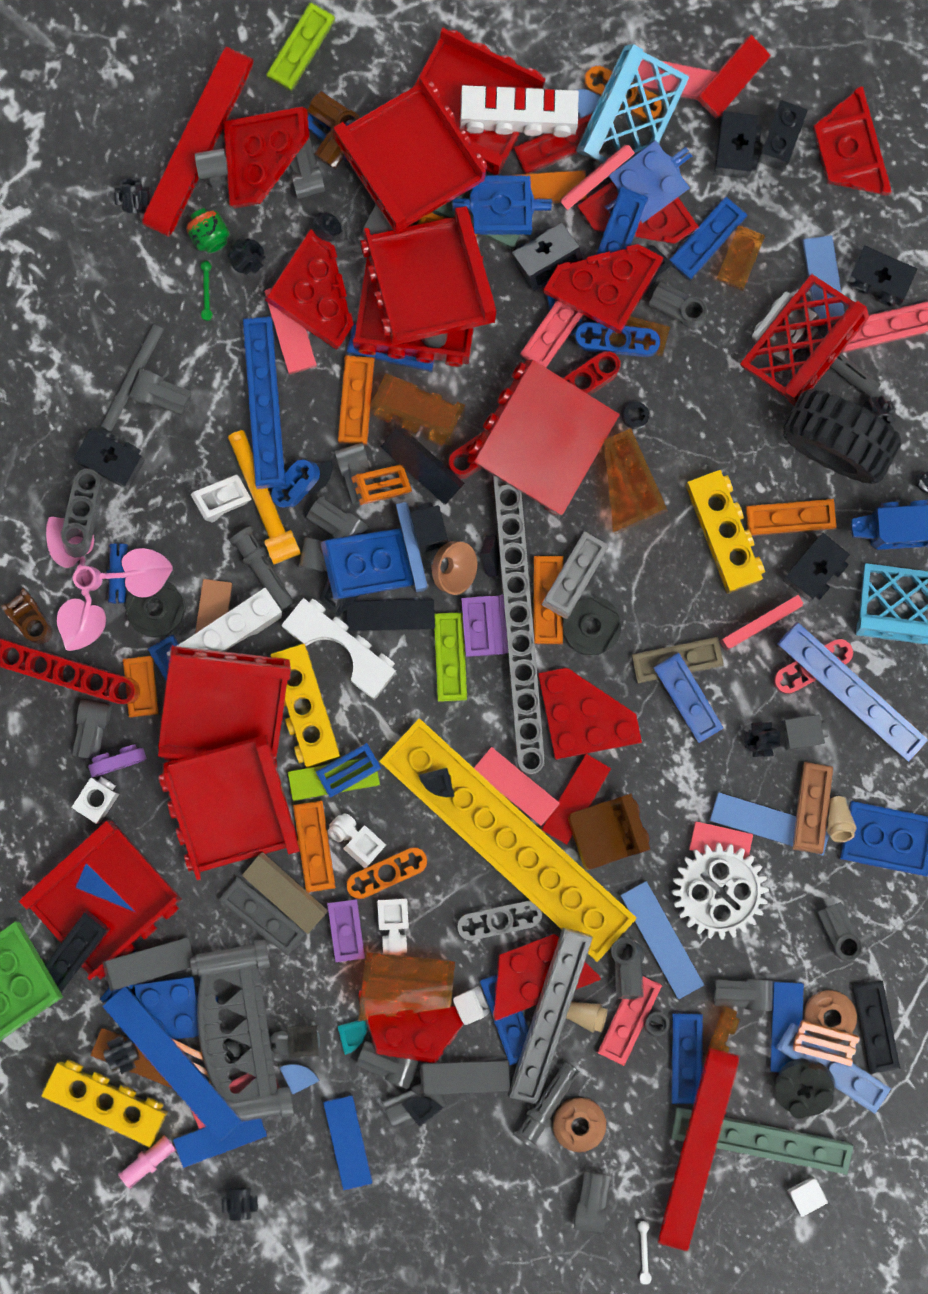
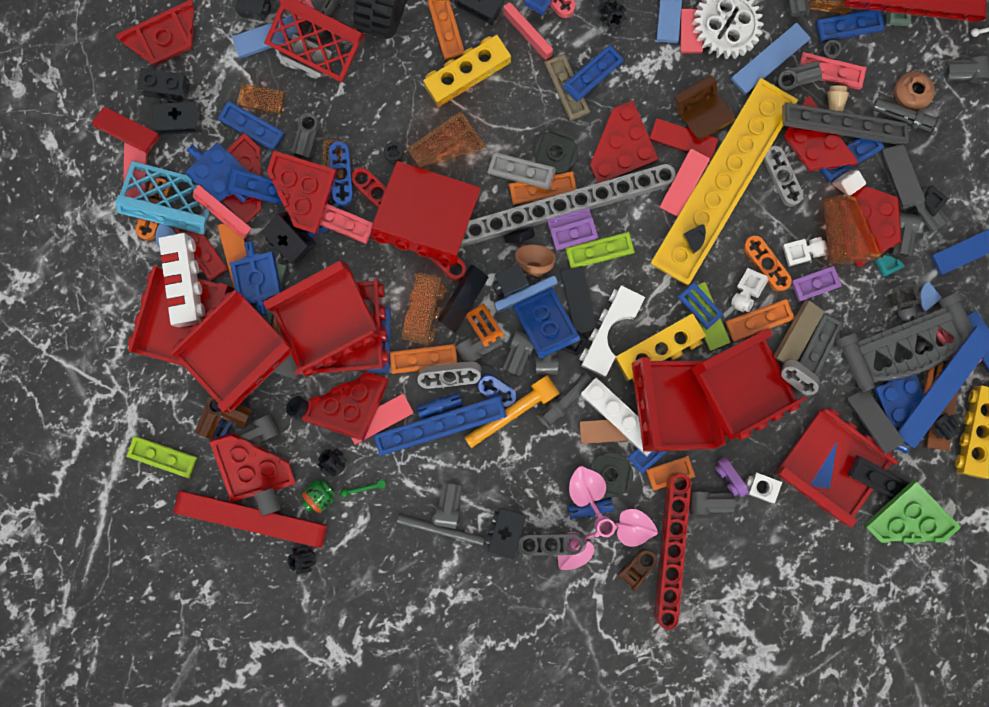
camera: 100 degrees left, 0 degrees up
(221, 498) = (519, 442): white slope -> none
(227, 880) = (802, 376): none -> light grey beam
(291, 407) = (439, 405): none -> blue pin
(328, 407) = (465, 379): none -> light grey beam

